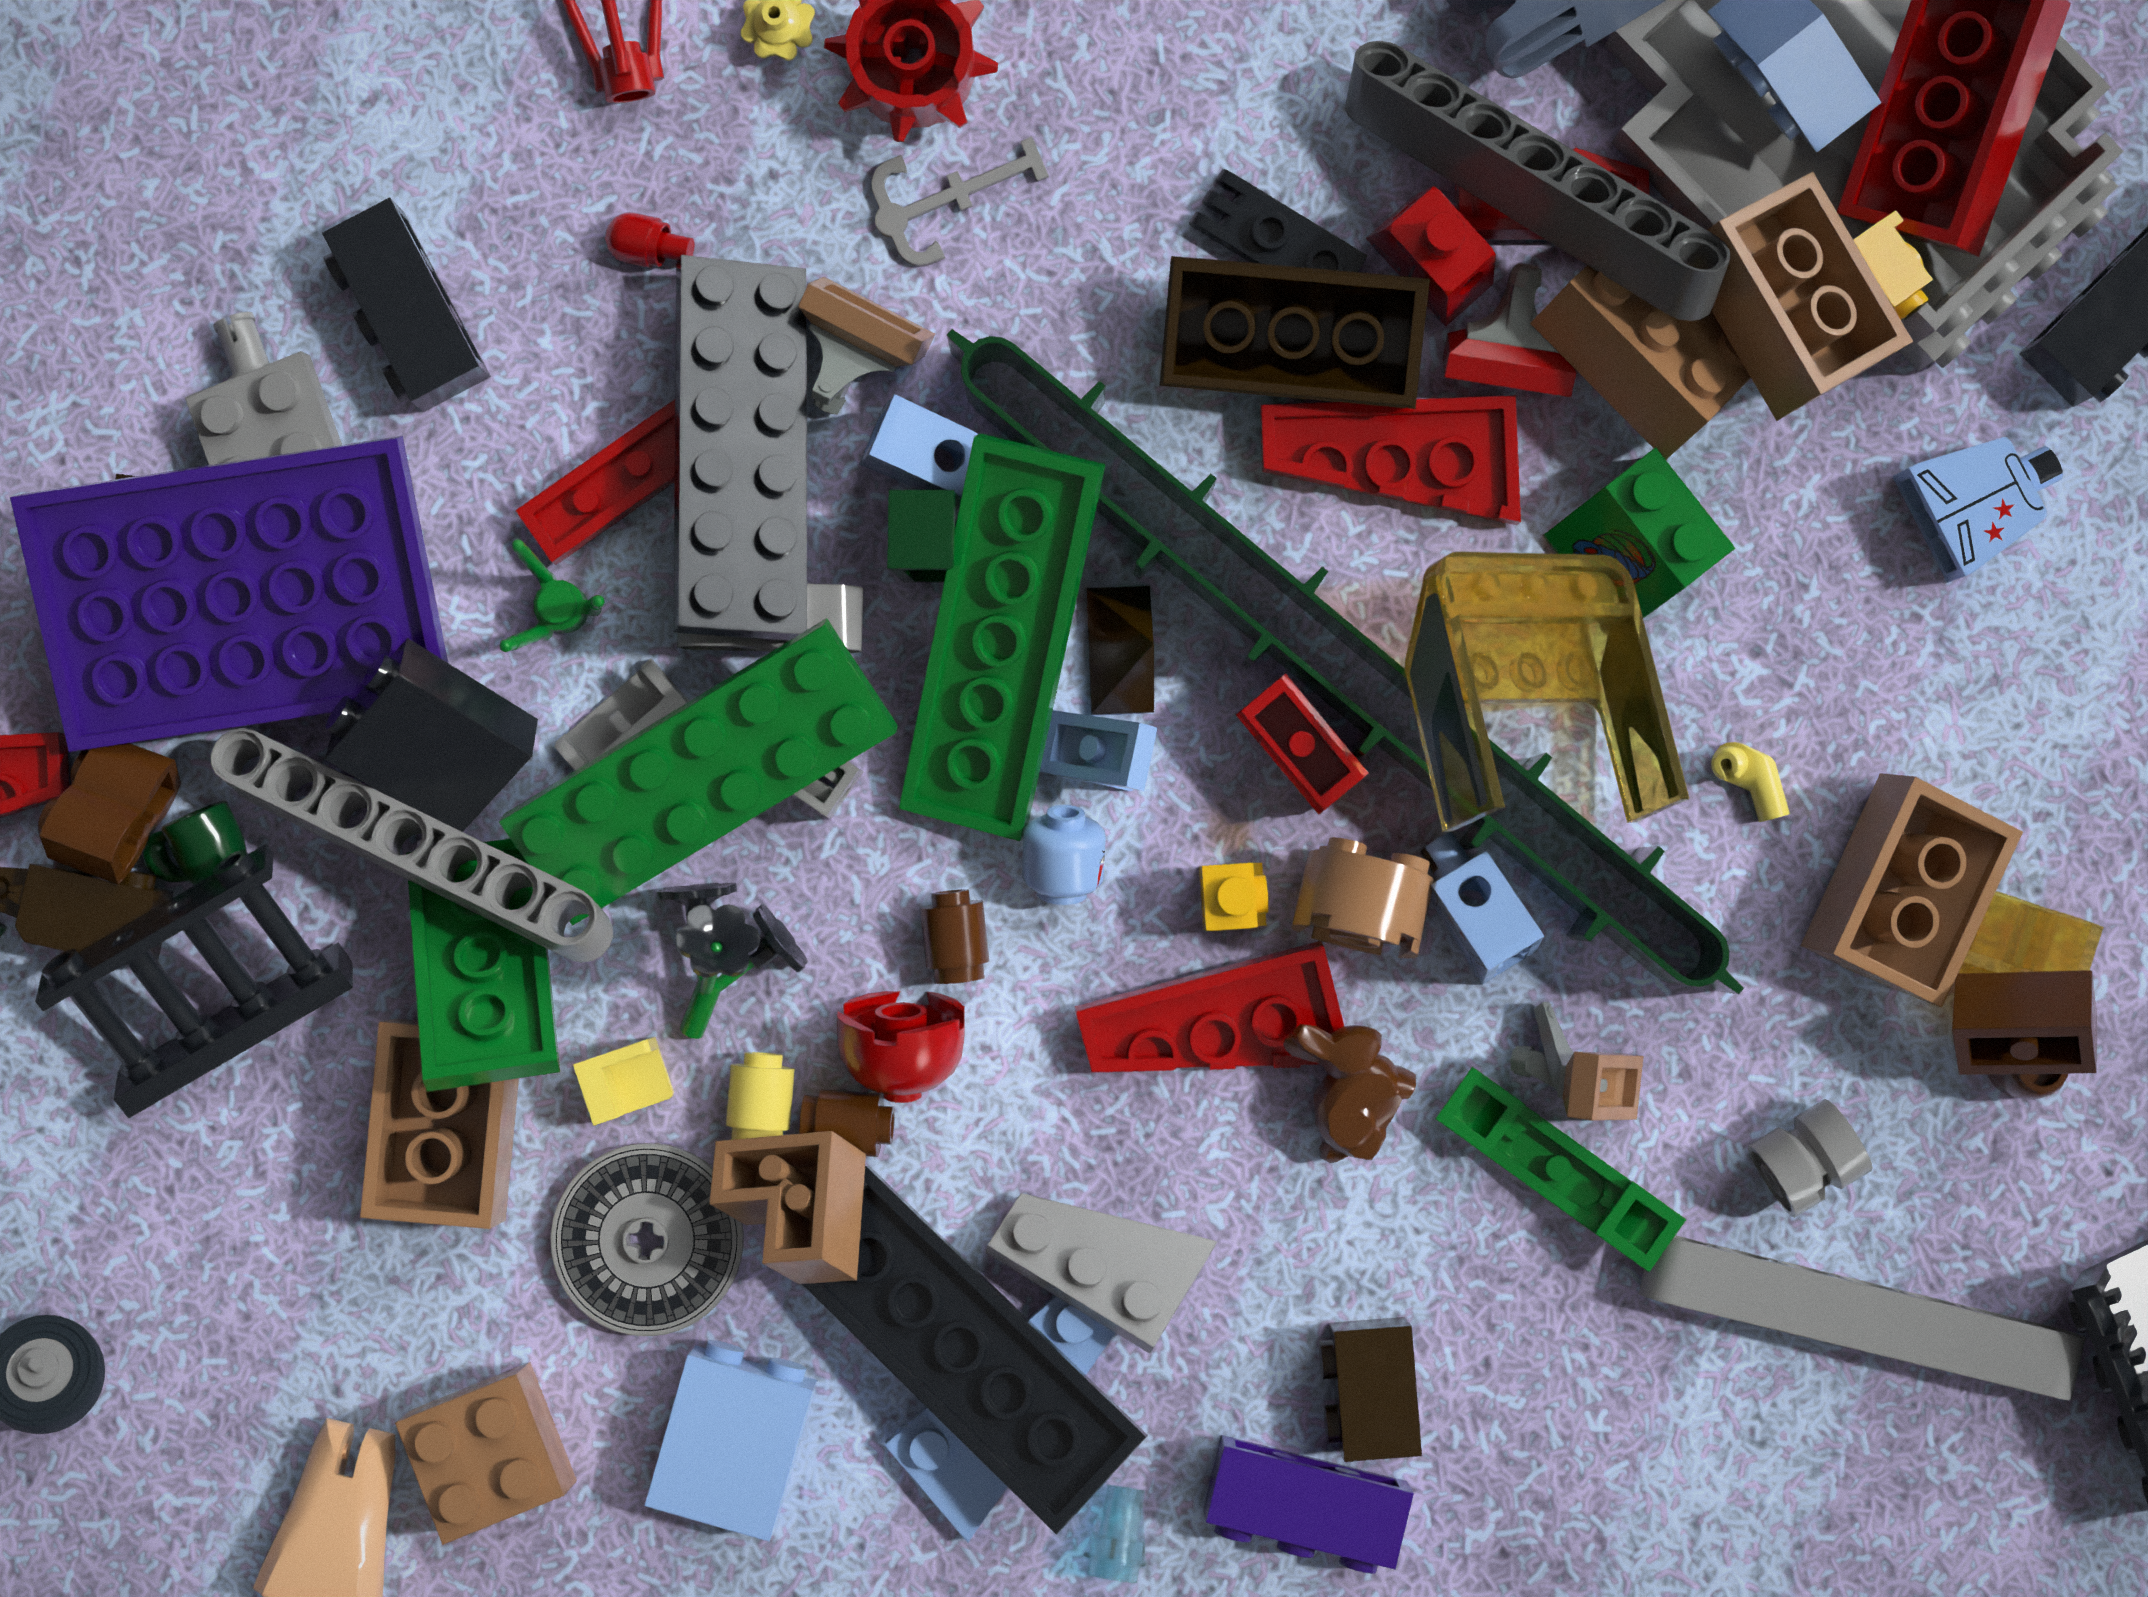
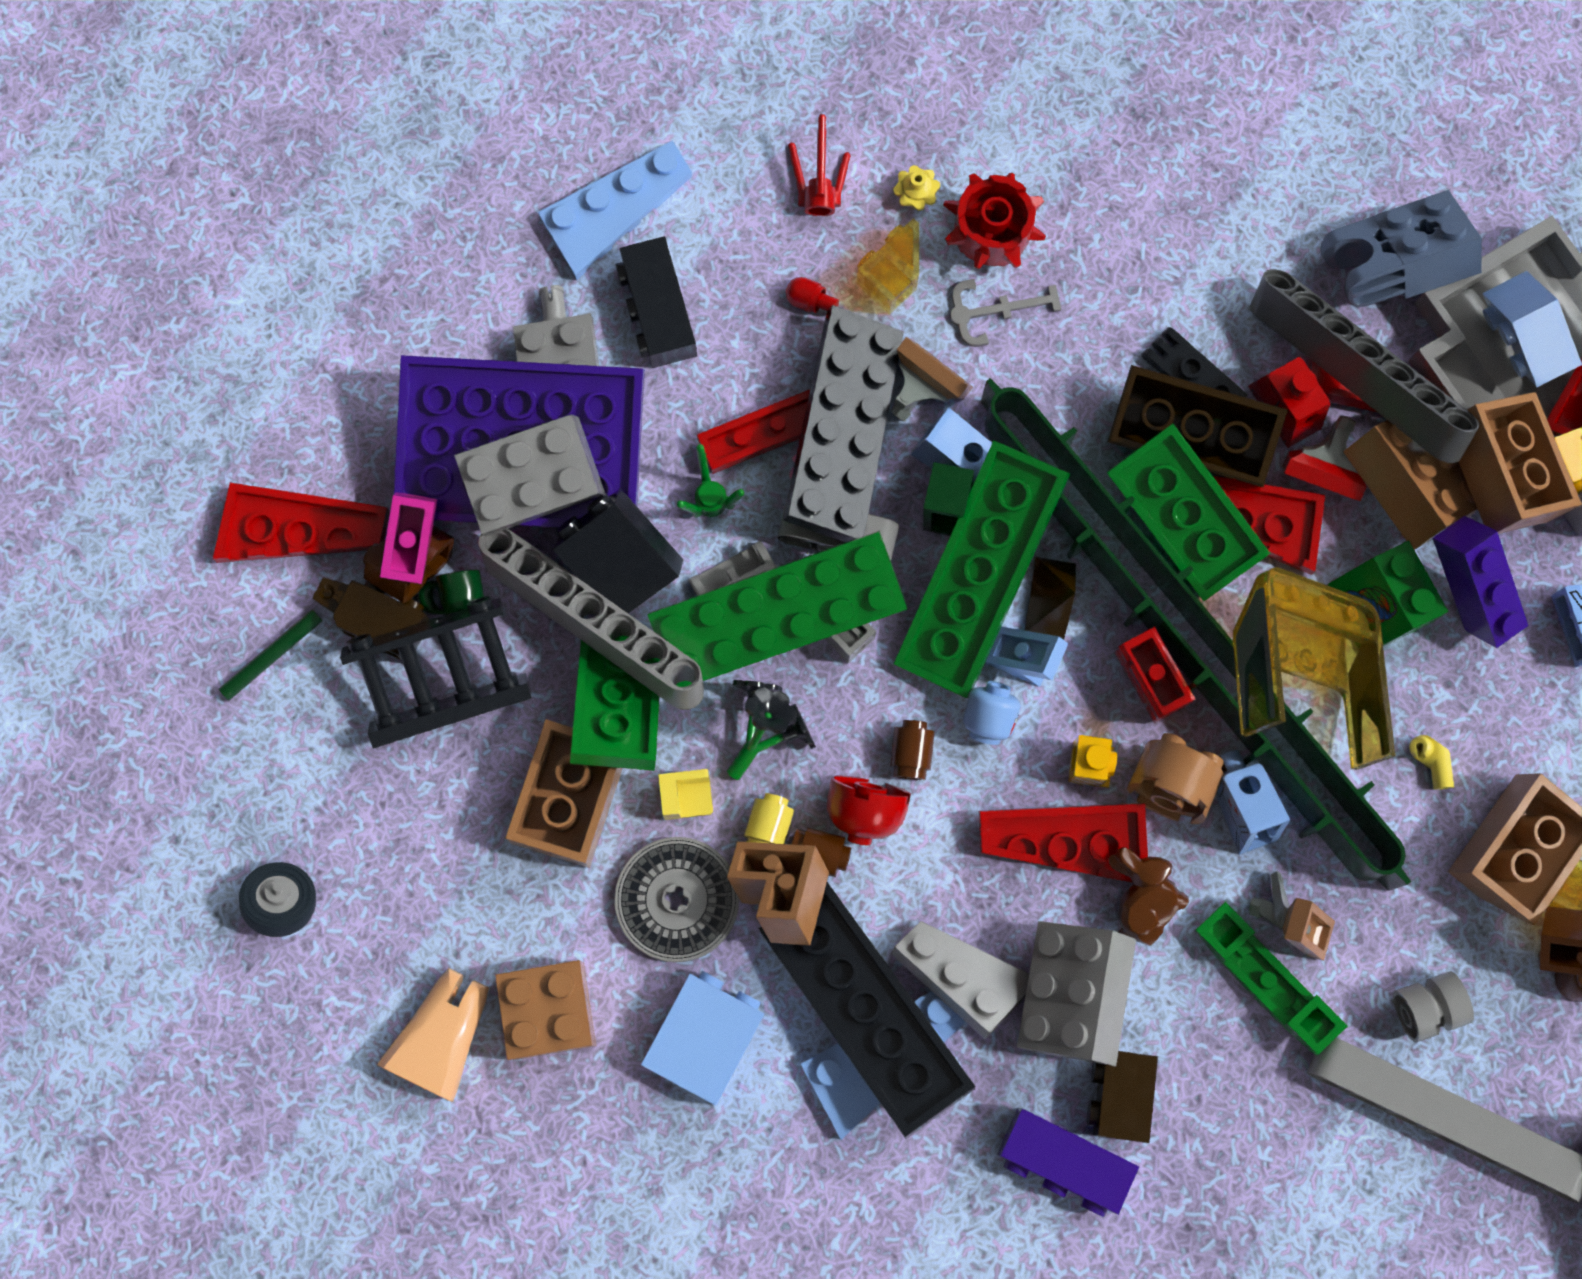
camera: 10 degrees right, 10 degrees down
(95, 785) = (408, 537): none -> dark pink slope
(260, 648) = (529, 474): none -> light grey brick
(290, 167) = (603, 212): none -> light blue wing
(768, 170) = (894, 269): none -> clear yellow slope
(1118, 1538) = (939, 1158): clear light blue cone -> none
(1273, 1260) = (1077, 992): none -> light grey brick
(1305, 473) = (1188, 512): none -> green plate
(1776, 491) = (1480, 581): none -> dark purple brick

